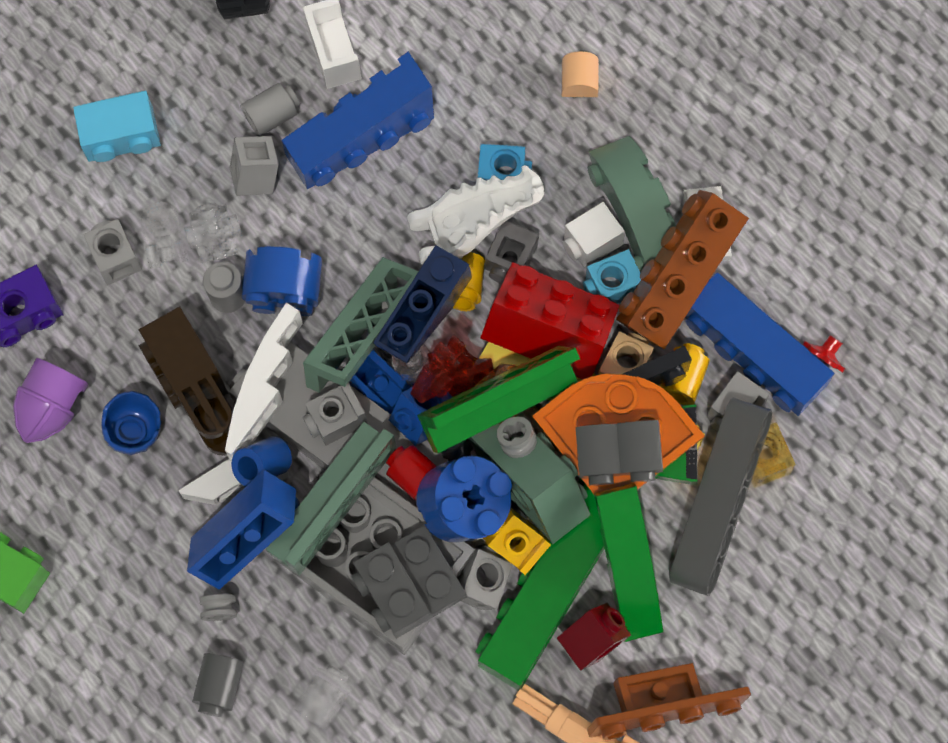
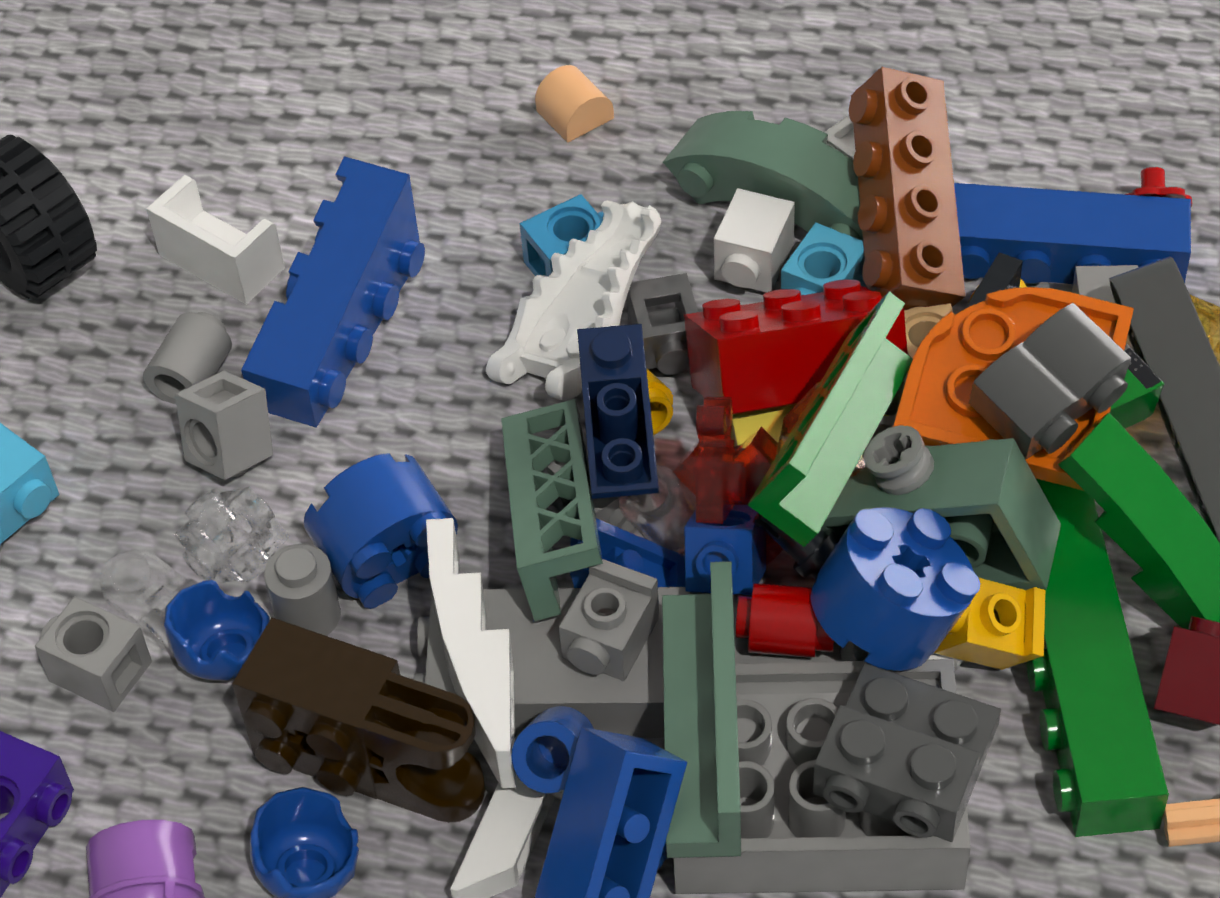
camera: 35 degrees left, 20 degrees down
(172, 280) = (213, 630): none -> blue hair
(496, 571) = (1000, 685): light grey brick -> none

